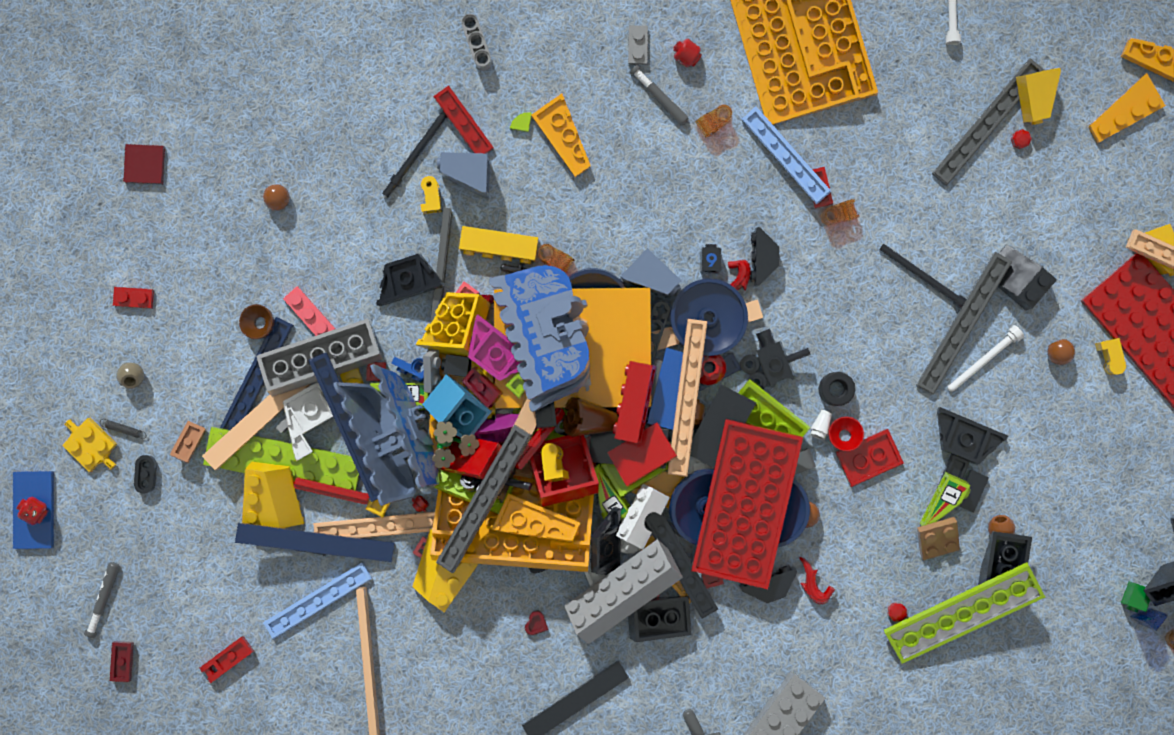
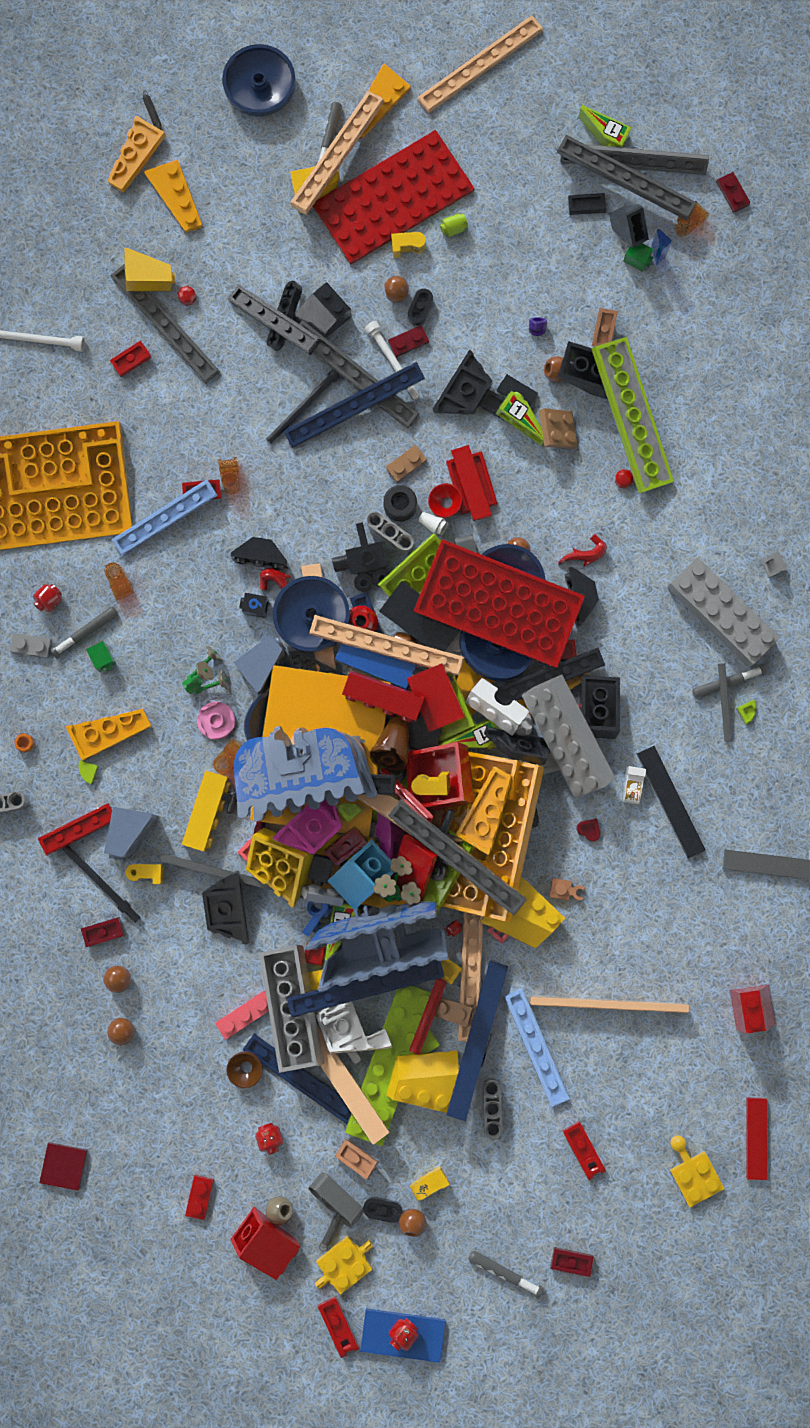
camera: 80 degrees left, 5 degrees down
(33, 447) = (338, 1326): none -> red plate
(96, 366) = (264, 1244): none -> red slope
(136, 504) = (412, 1222): none -> dark orange piece
(147, 428) = (336, 1199): none -> dark grey beam
(175, 515) = (429, 1183): none -> yellow leg
(195, 355) = (269, 1138): none -> red head
(244, 565) = (492, 1118): none -> dark grey beam
(306, 497) = (430, 1043): none -> lime tile
(325, 185) = (117, 979): none -> dark orange piece
(339, 516) = (454, 1012): none -> medium nougat plate
(368, 163) = (102, 932): none -> dark red plate
(473, 605) = (562, 889): none -> nougat plate
(540, 56) = (24, 742): none -> orange tile
(585, 242) = (216, 720): none -> bright pink tile
(585, 662) = (633, 784): none -> white leg
(635, 218) = (193, 681): none -> plant
(636, 116) = (101, 657): none -> green brick
(811, 376) = (386, 524): none -> light grey beam
(868, 457) = (471, 483): none -> red tile
(879, 388) = (406, 463): none -> medium nougat plate
(932, 327) = (354, 404): none -> dark blue tile
(945, 93) = (130, 358): none -> red plate
(1008, 232) = (274, 320): none -> tile
(1008, 372) = (408, 341): none -> dark red plate
(1037, 244) = (290, 295): none -> black beam
(1045, 379) = (419, 307): none -> black plate
(1046, 503) = (537, 323): none -> dark purple tile
(1053, 571) = (604, 326): none -> nougat plate
(1139, 401) = (454, 225): none -> lime brick

